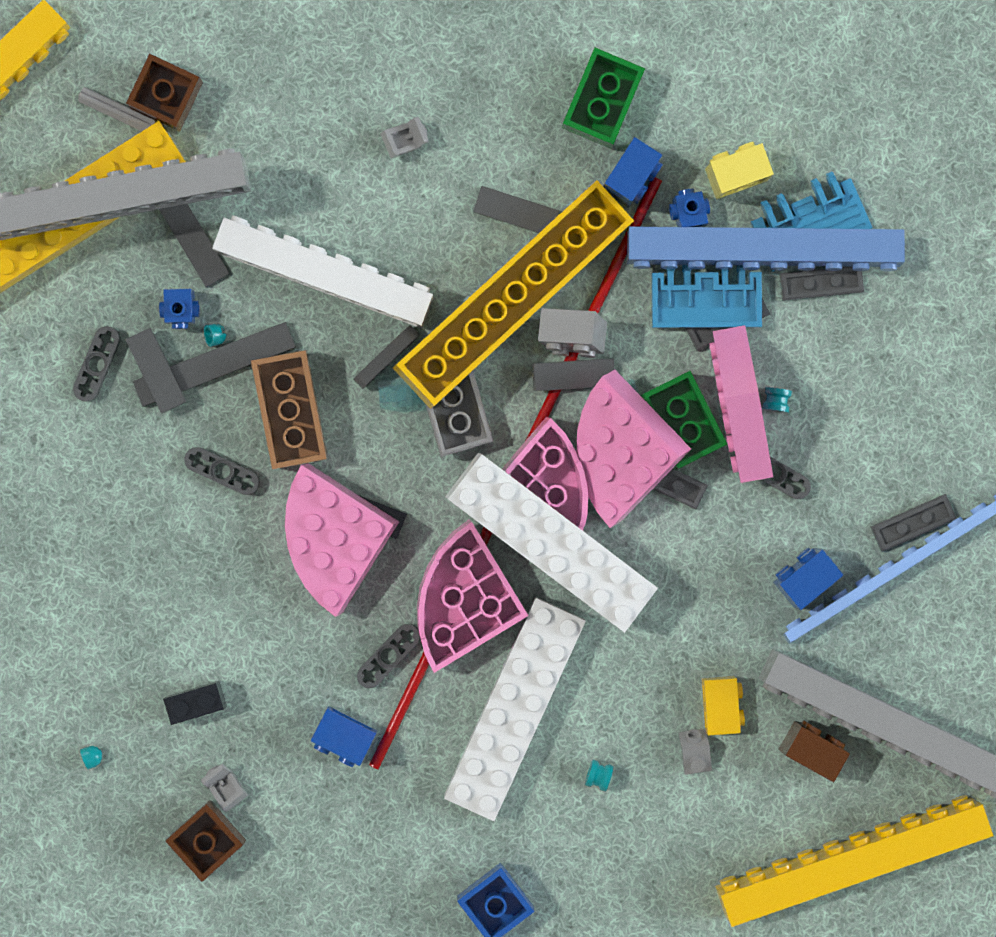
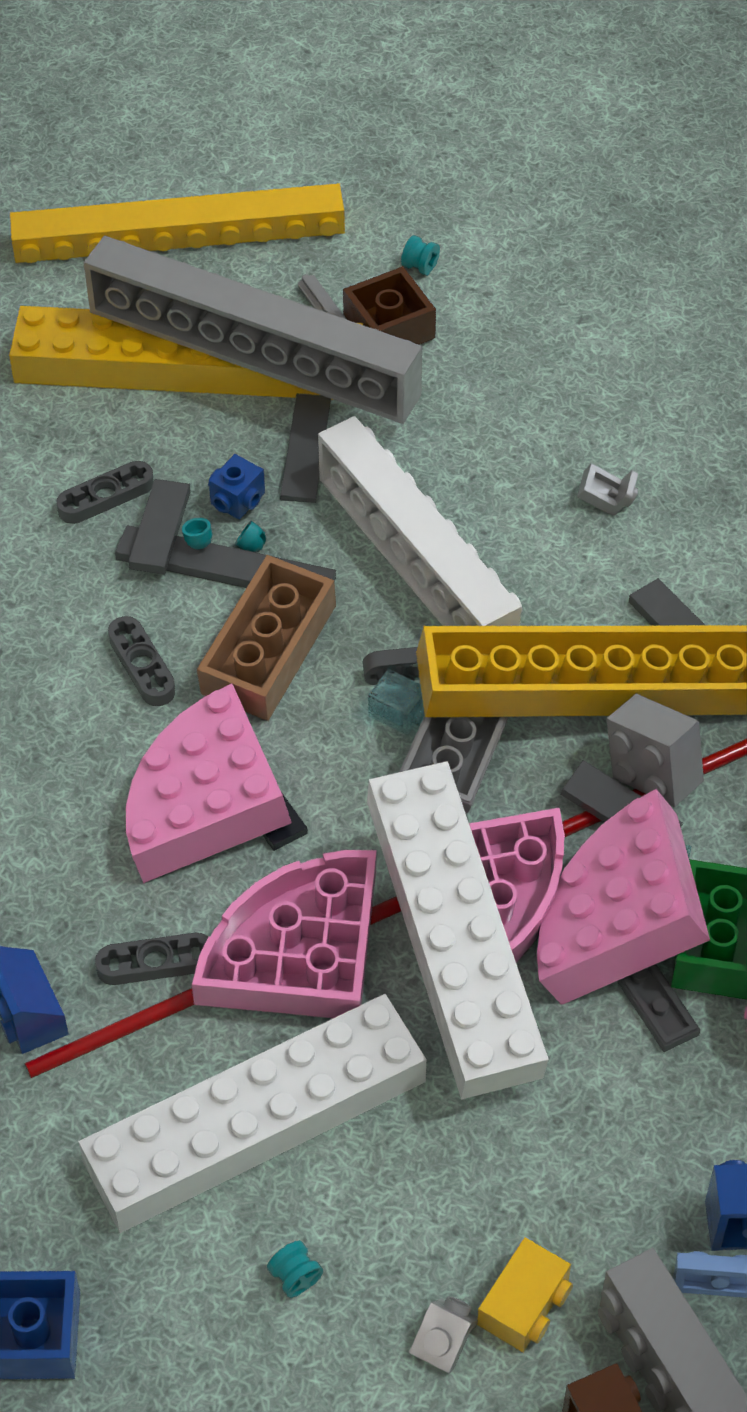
camera: 30 degrees right, 35 degrees down
(141, 18) = (420, 255): none -> teal wheel
(181, 359) = (197, 533): none -> teal hinge

